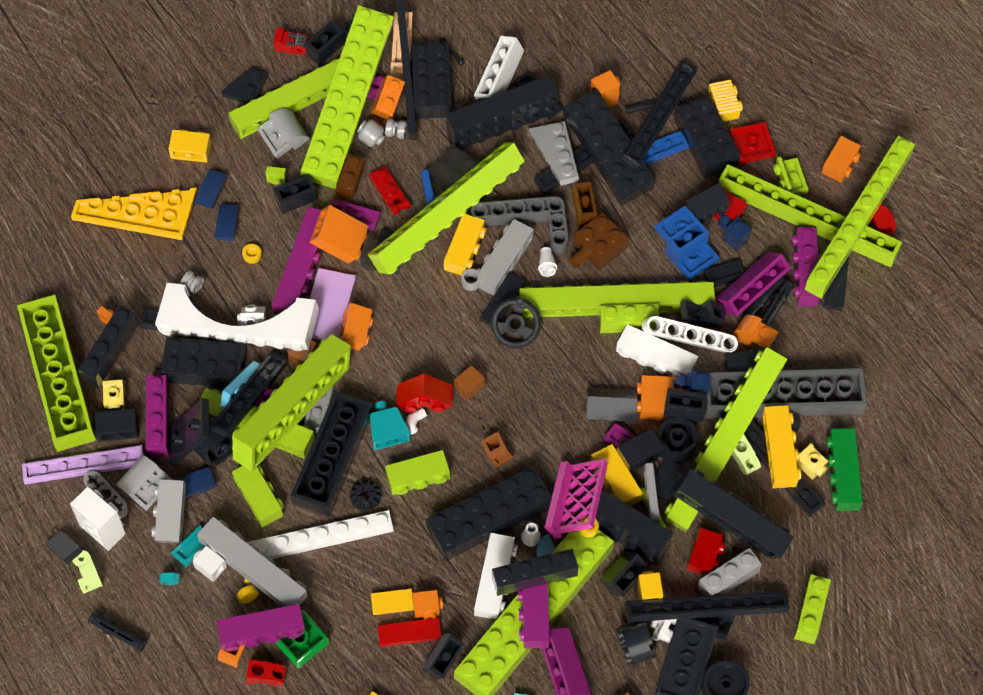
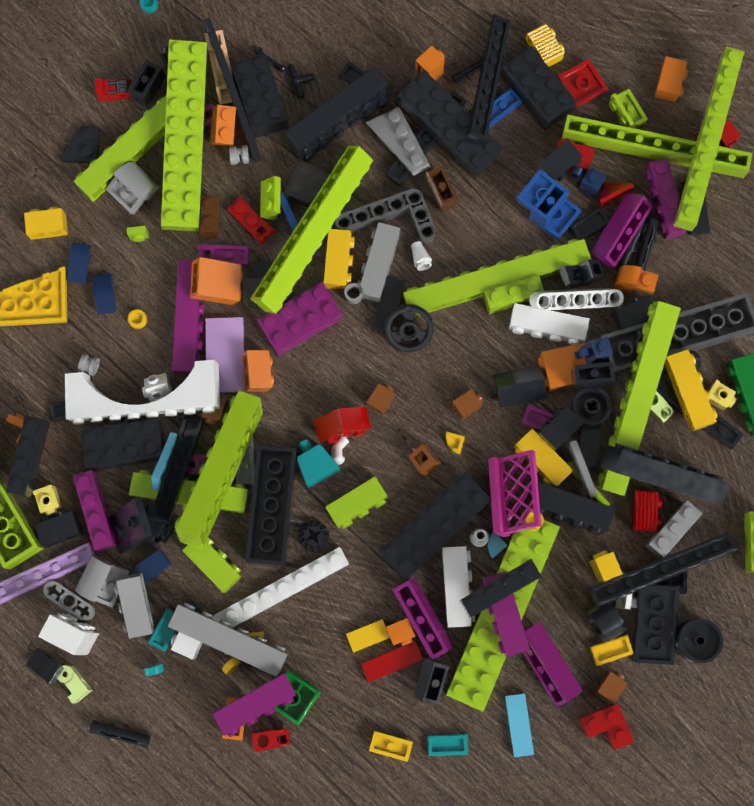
camera: 10 degrees left, 15 degrees up
(295, 194) = (162, 249): black brick -> none
(371, 133) = (217, 166): light grey head -> none
(411, 290) = (300, 319): none -> magenta brick
(414, 173) = (270, 198): none -> lime bracket
(452, 595) = (423, 618): none -> magenta brick
(472, 76) = (297, 81): none -> black piece
(500, 68) = (322, 69): white brick -> none
(532, 442) = (454, 442): none -> yellow tile
(554, 408) = (467, 404): none -> dark orange brick
(598, 243) = (464, 225): reddish brown brick -> none
(624, 573) = (577, 554): black brick -> none
(635, 678) = (612, 650): none -> yellow tile
(755, 249) = (613, 191): none -> red slope

